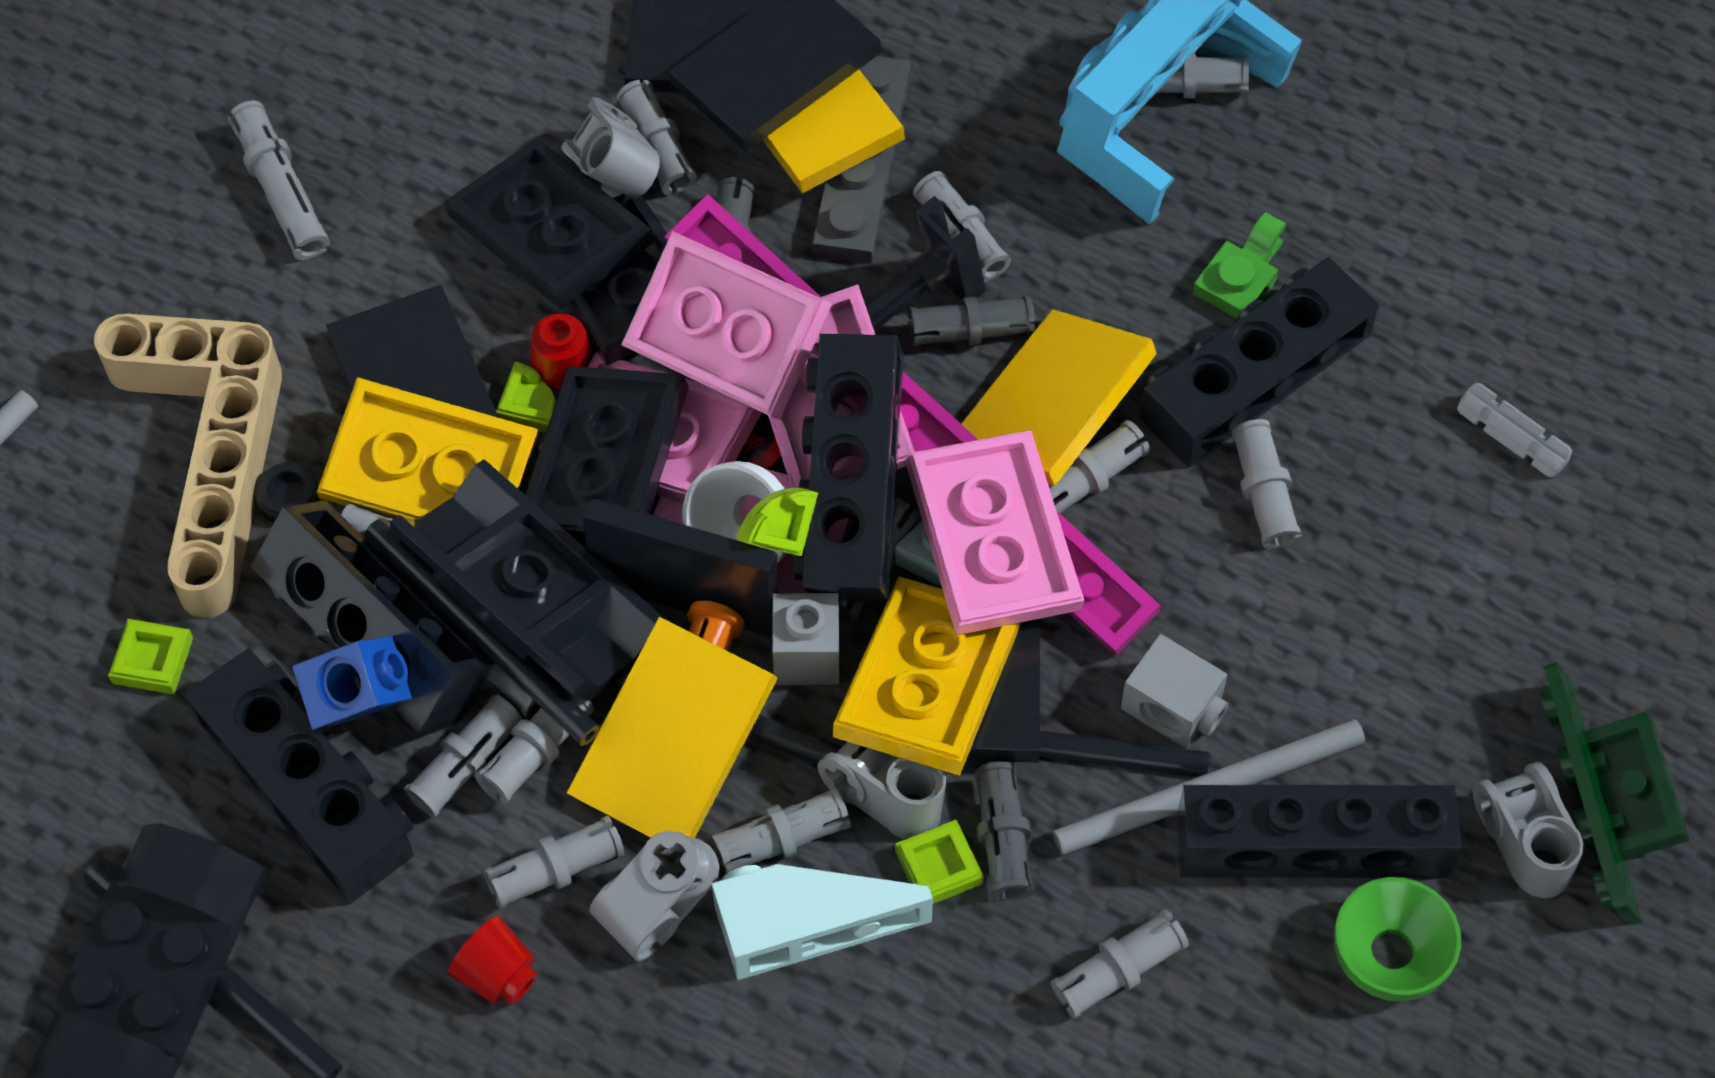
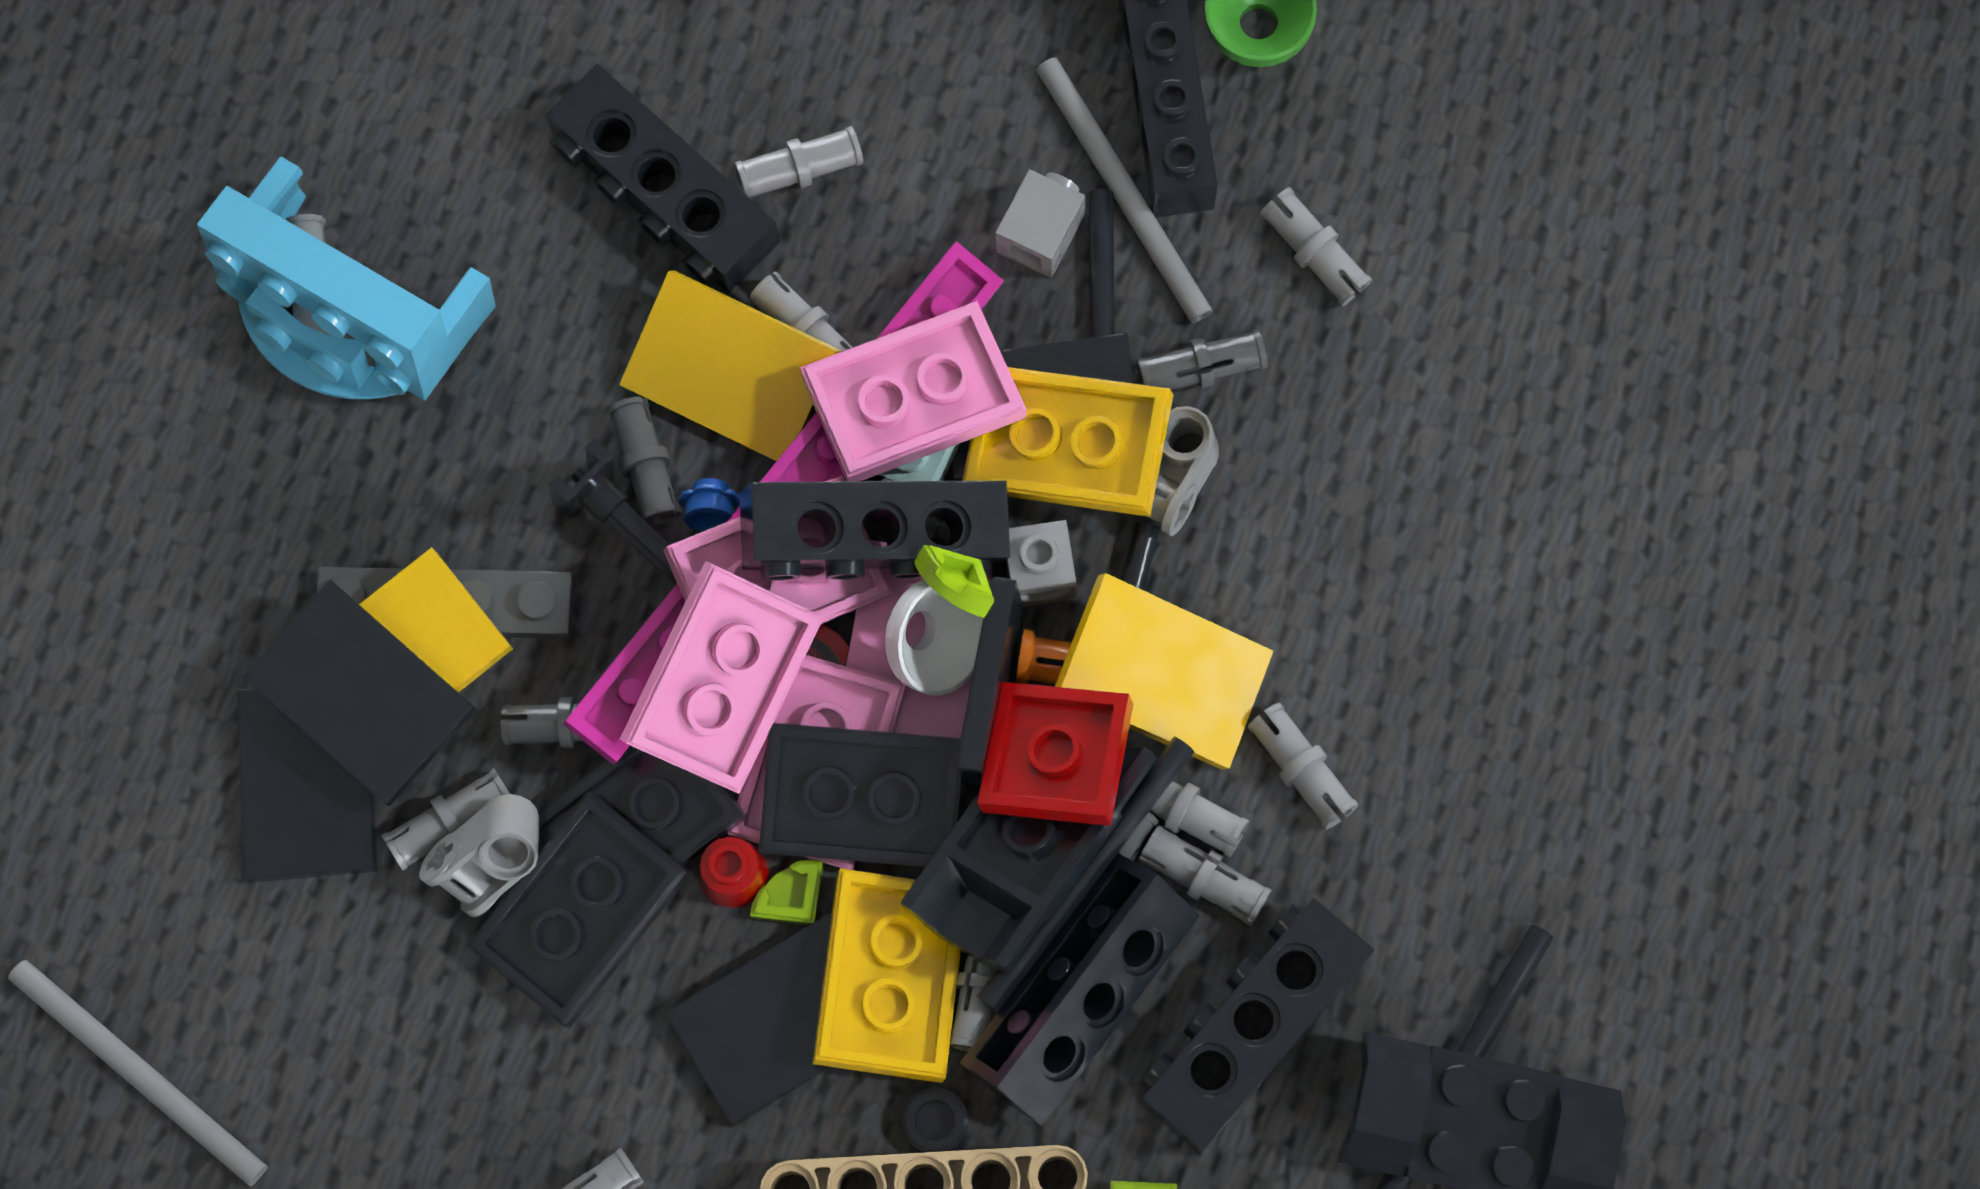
camera: 95 degrees left, 15 degrees up
(330, 684) = (1173, 977): blue brick -> none
(494, 963) = (1415, 799): red hat -> none
(591, 596) = (1056, 753): none -> red plate
(649, 897) = (1330, 665): light grey piece -> none
(781, 831) = (1234, 563): light grey pin -> none
(802, 913) = (1324, 538): light aqua slope -> none
(923, 366) = (708, 504): none -> blue plate
(940, 861) = (1241, 418): lime tile -> none
(992, 257) = (496, 512): light grey pin -> none
(1242, 275) = (553, 212): bright green plate -> none

